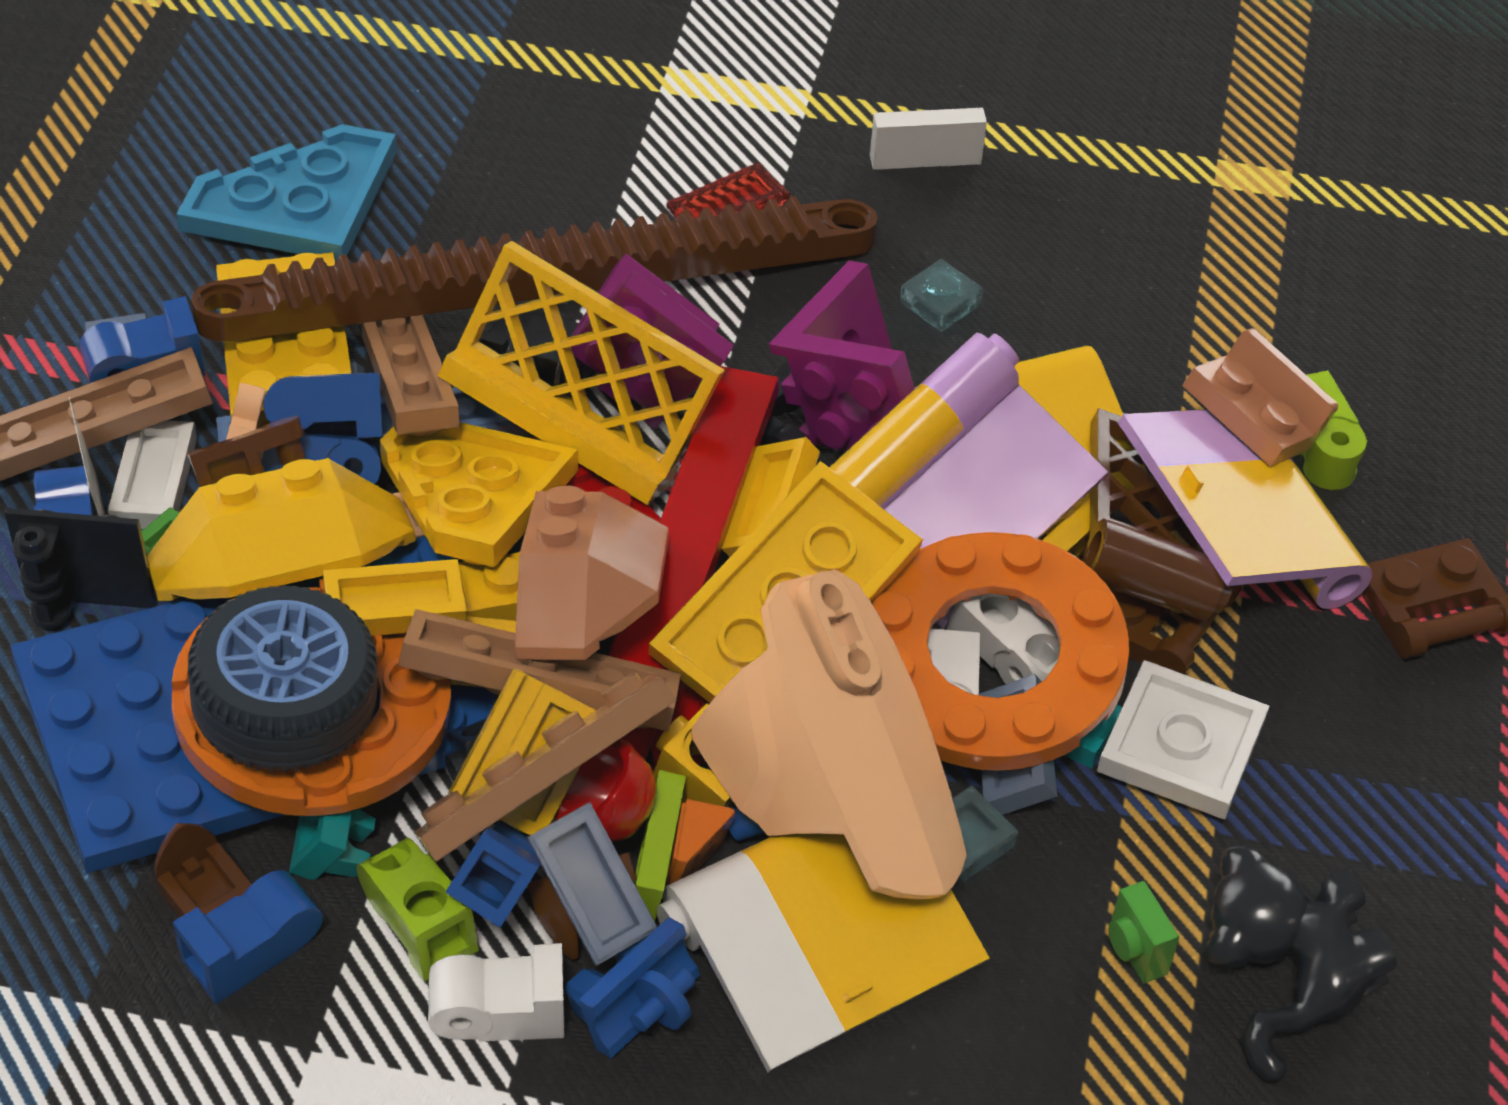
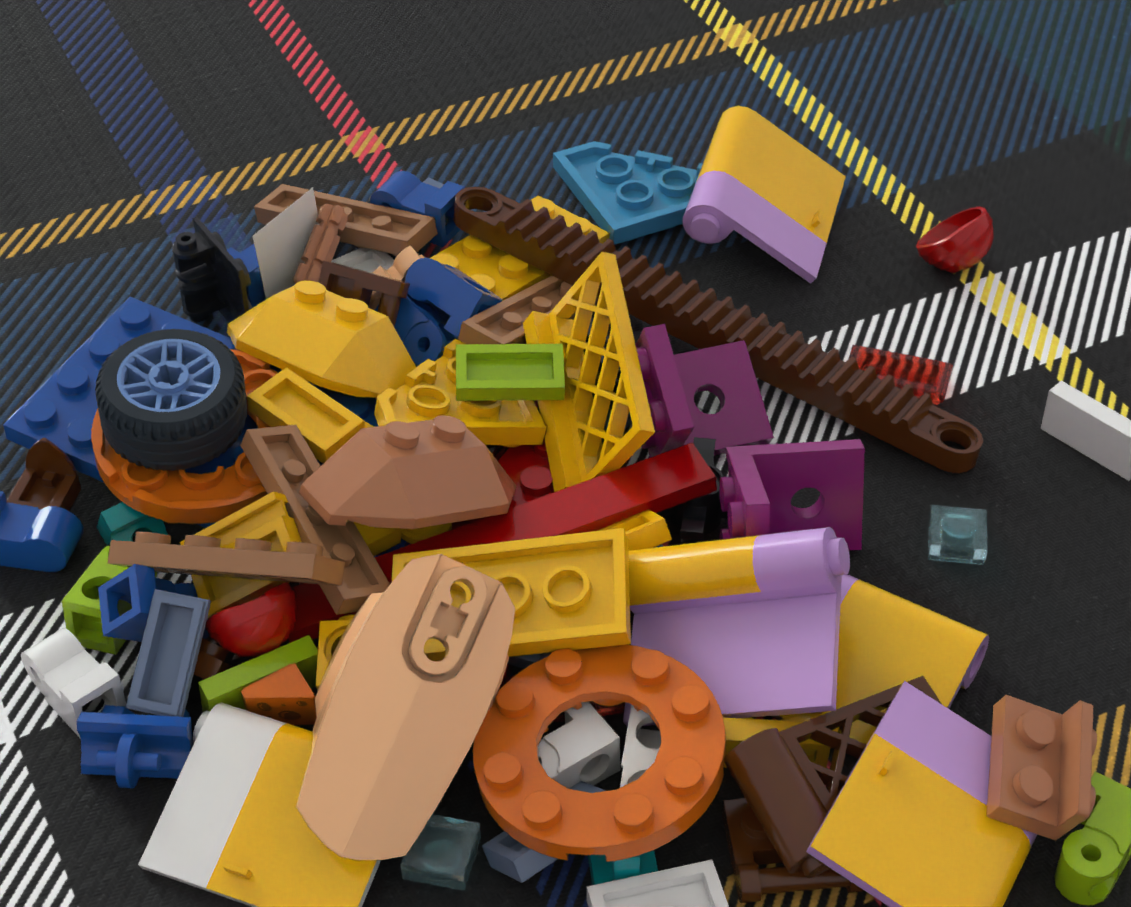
camera: 55 degrees right, 5 degrees down
(120, 457) = (321, 242): none -> nougat axle
(416, 118) = (765, 191): none -> door
(504, 422) = (509, 372): none -> lime tile
(623, 52) = (958, 240): none -> red piece

